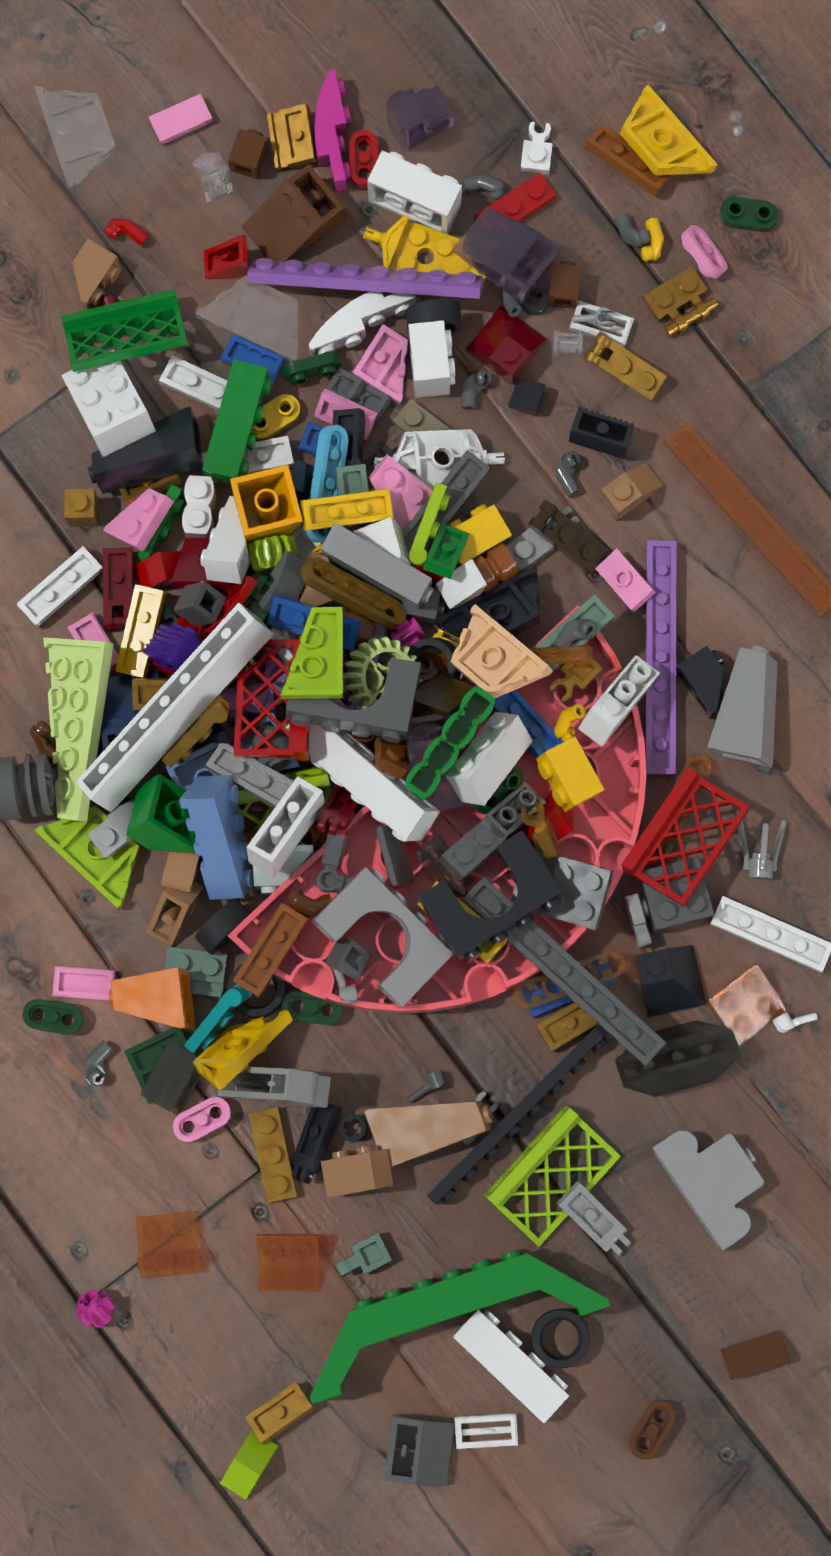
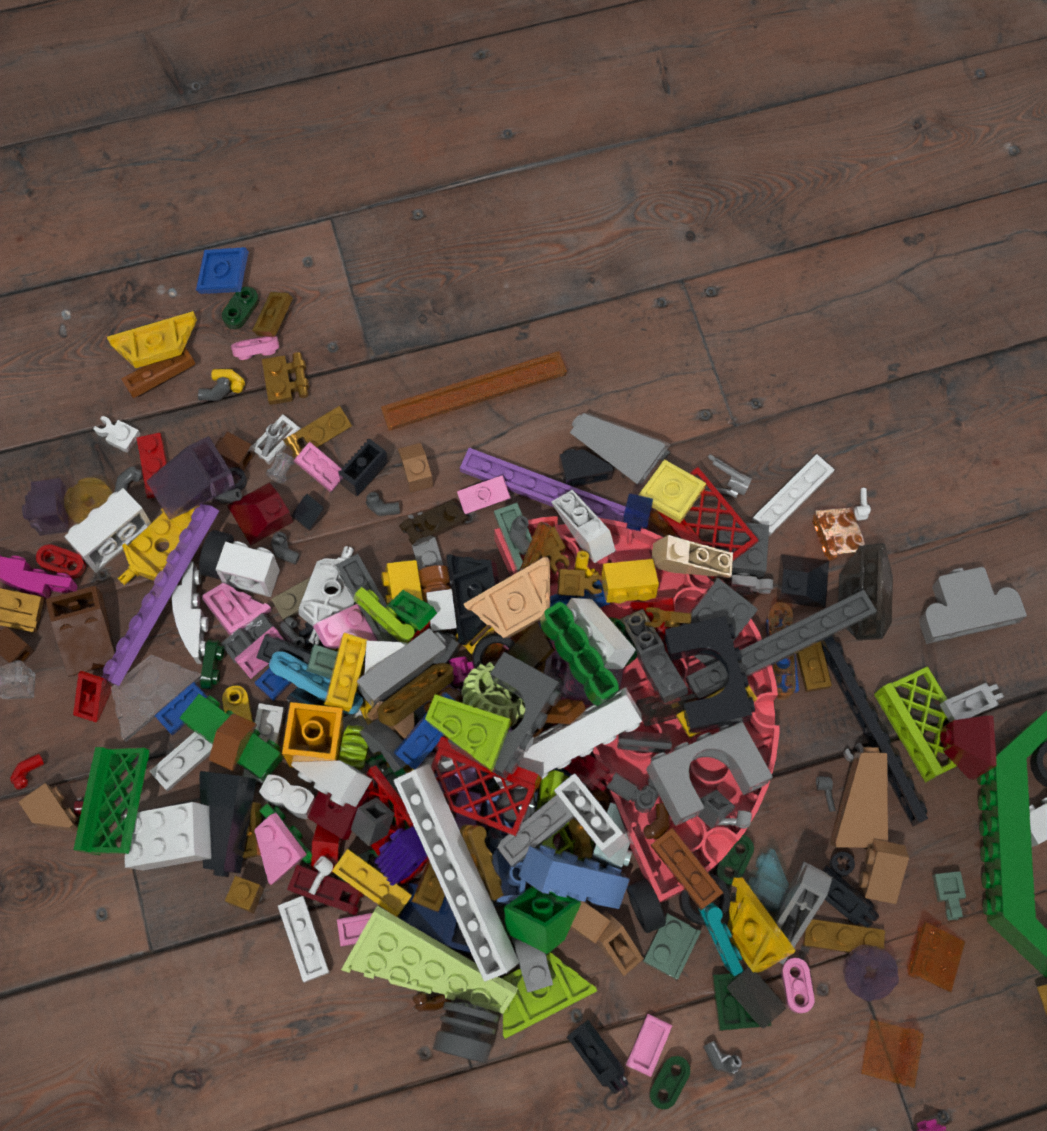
camera: 75 degrees left, 10 degrees down
(51, 933) = (598, 1057): none -> black hinge
(138, 576) = (324, 867): none -> white hand
(156, 996) = (687, 985): orange slope -> none
(227, 1195) = (855, 969): none -> clear purple plate
(228, 422) = (231, 741): none -> dark orange slope
(300, 1052) = (770, 881): none -> clear light blue slope
(376, 438) = (290, 636): none -> dark grey arm
(452, 144) = (81, 492): none -> clear yellow plate
(537, 1224) = (971, 744): none -> dark red slope
(543, 714) = (574, 583): none -> pearl gold plate
(585, 383) = (318, 466): none -> bright pink plate
(627, 836) = (691, 558): none -> tan slope
(658, 754) = (637, 512): none -> clear blue bracket
(705, 786) = (673, 490): none -> light yellow plate
(753, 253) = (272, 314): none -> pearl gold plate
(785, 173) = (222, 270): none -> blue plate

